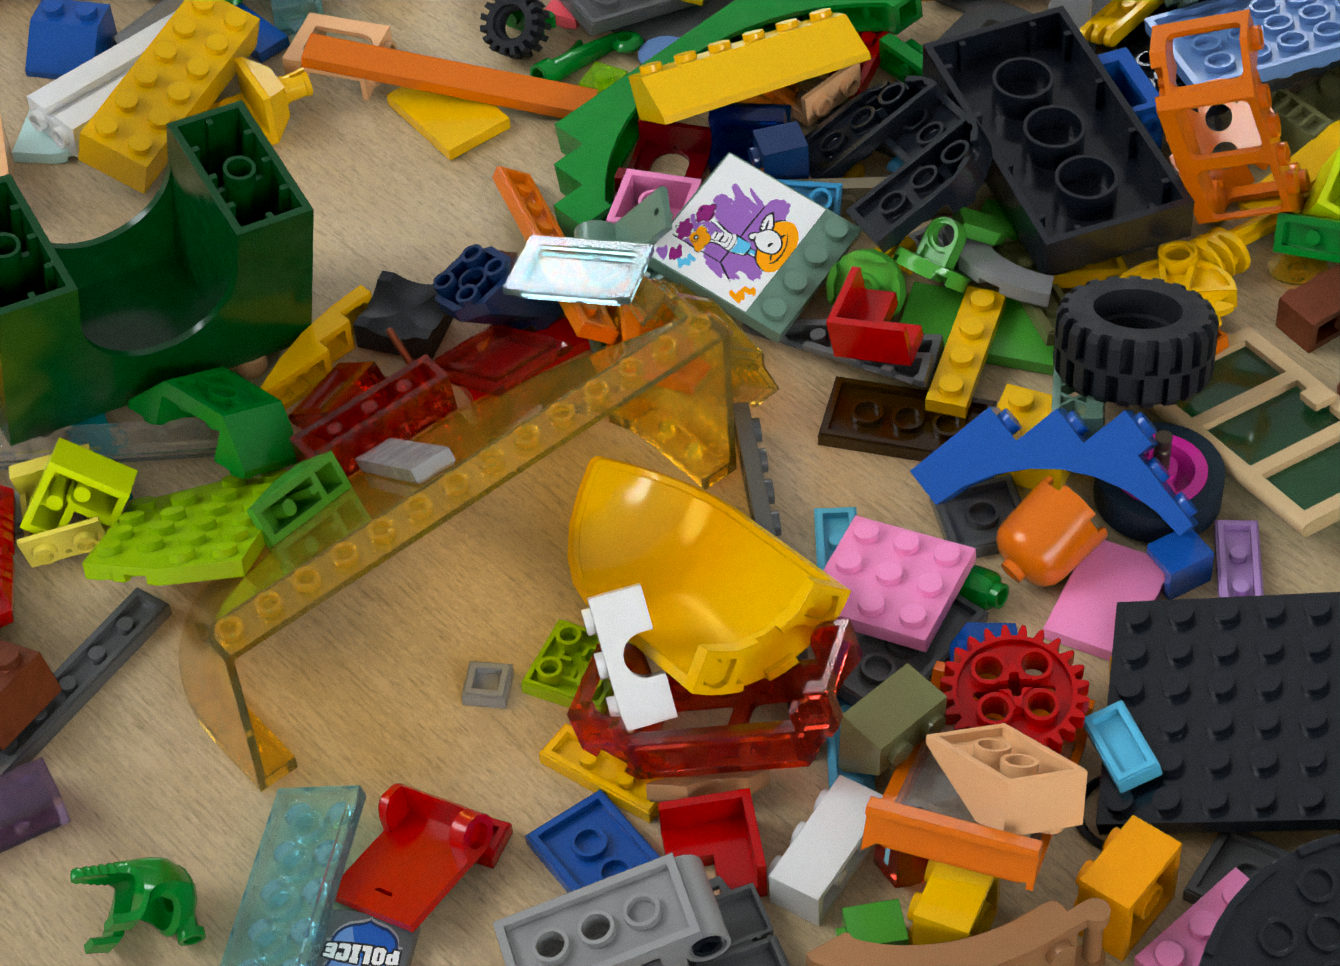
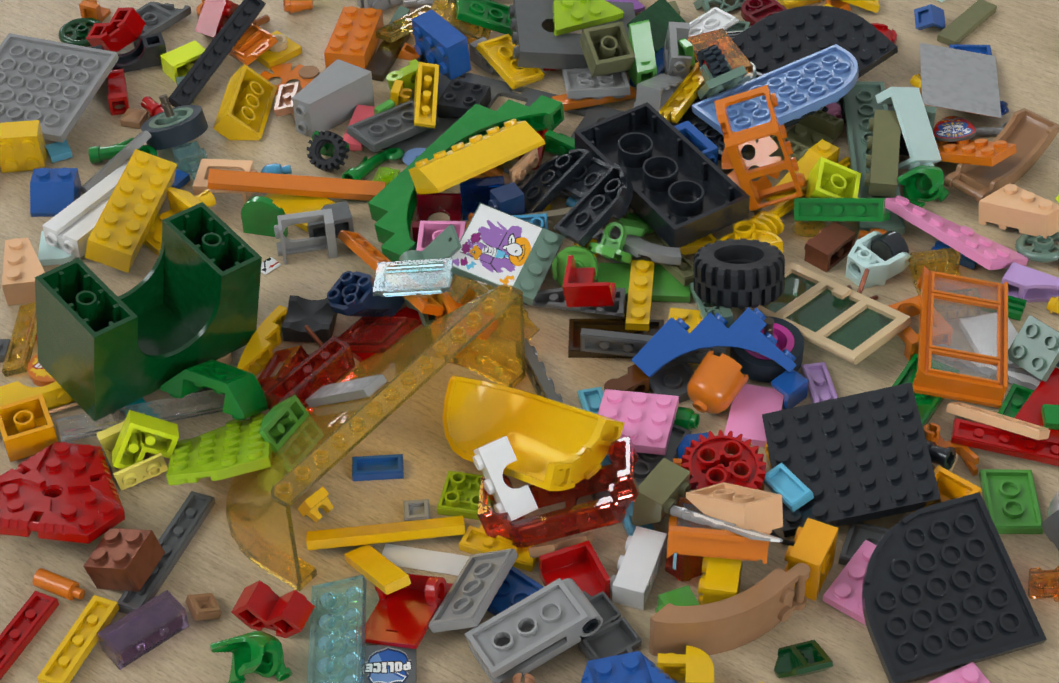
camera: 15 degrees left, 5 degrees down
(98, 793) = (203, 606): none -> medium nougat tile
(189, 814) = (263, 608): none -> red brick
(324, 639) = (316, 500): none -> yellow tile
(370, 210) = (269, 265): none -> white sticker
(380, 129) = (260, 216): none -> green tile
(385, 779) = (377, 569): none -> yellow tile
(409, 182) = (290, 246): none -> light grey panel
(425, 713) = (385, 533): none -> yellow tile
(428, 45) = (277, 169): none -> dark azure cylinder
(446, 593) = (377, 467): none -> blue tile
(485, 147) = (342, 220): none -> dark grey slope
(488, 774) = (425, 559): none -> white sticker
(533, 844) = (473, 590): none -> light grey tile
(906, 510) = (633, 381): none -> reddish brown leg
(920, 439) = (630, 344): none -> dark grey tile
(962, 804) = (684, 513): none -> light grey sword

